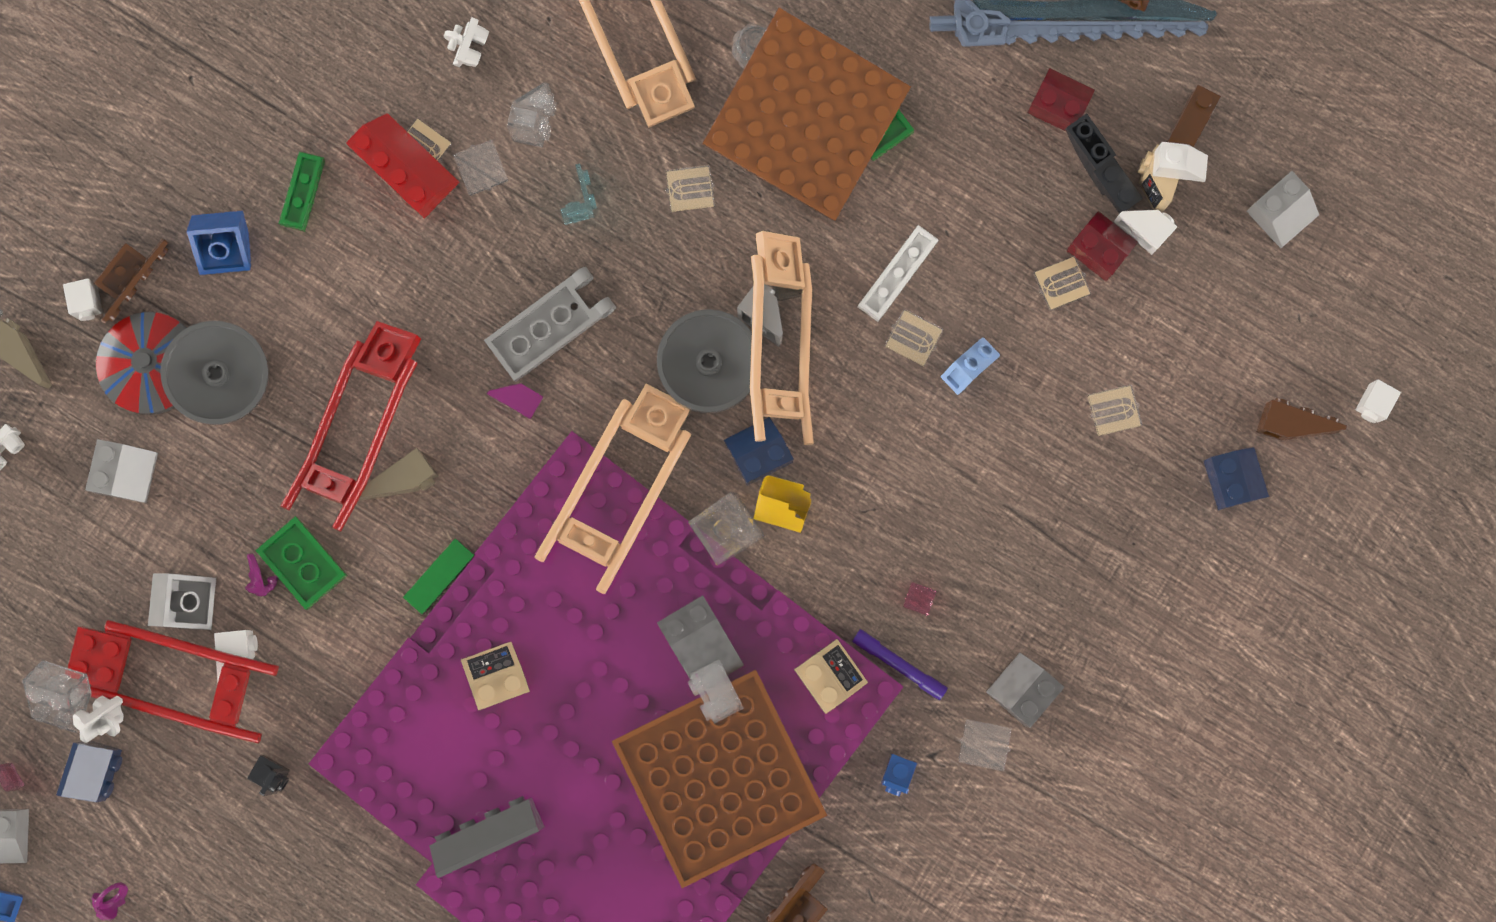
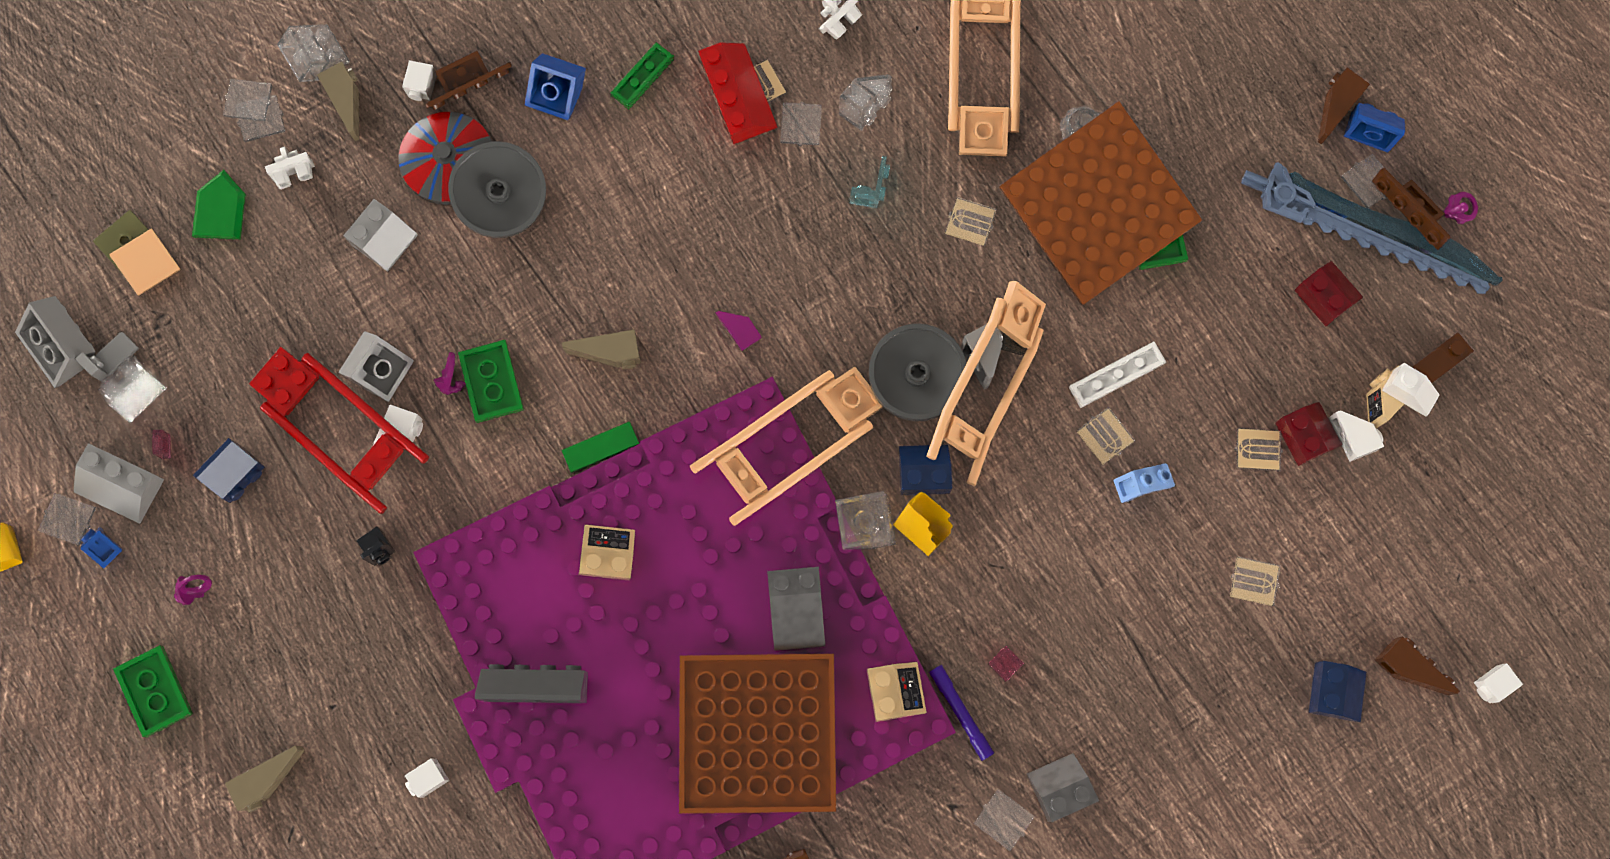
camera: 25 degrees right, 5 degrees down
(56, 694) = (235, 395): clear slope -> none
(103, 719) = (260, 432): white hips -> none
(384, 355) = (644, 240): red plate -> none
(546, 326) = (794, 279): light grey hinge -> none
(716, 692) = (790, 654): clear slope -> none
(898, 775) = (915, 808): blue bracket -> none
(1101, 165) = (1339, 362): black slope -> none
(1285, 209) = (1487, 476): light grey slope -> none

